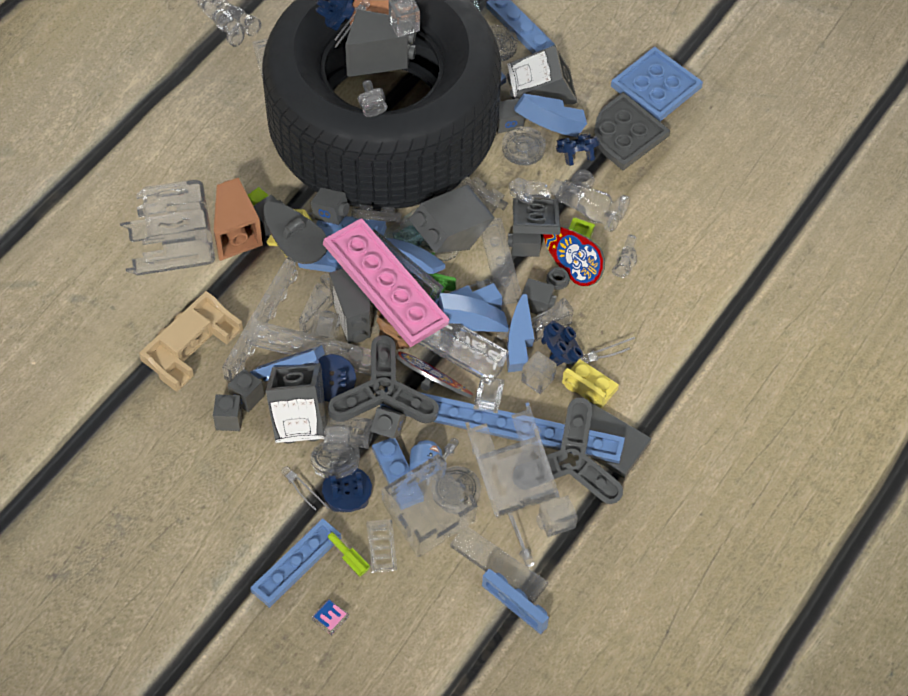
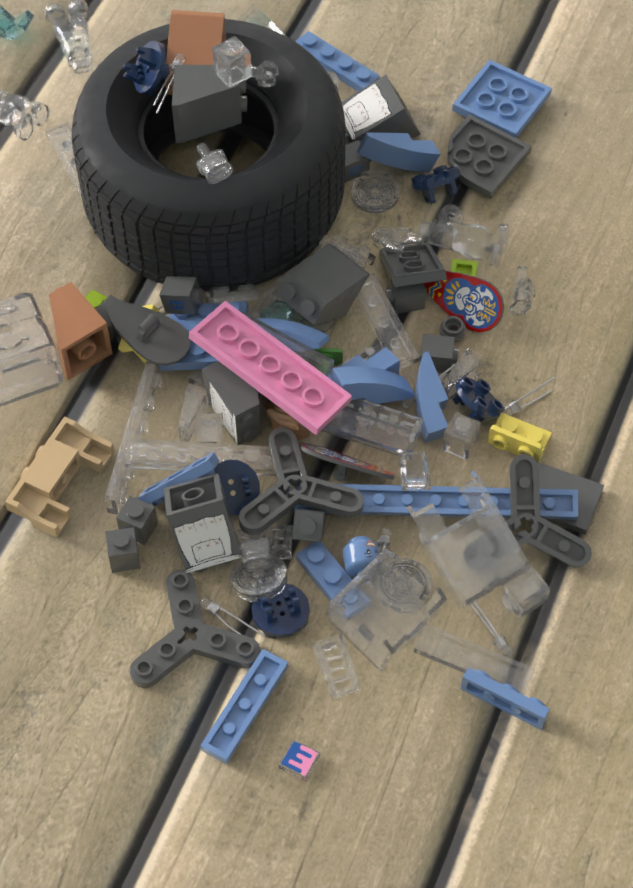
camera: 10 degrees left, 0 degrees up
(267, 479) = (209, 642): none -> dark grey piece
(350, 556) = (306, 685): lime axle -> none
(433, 27) = (265, 73): none -> clear bar

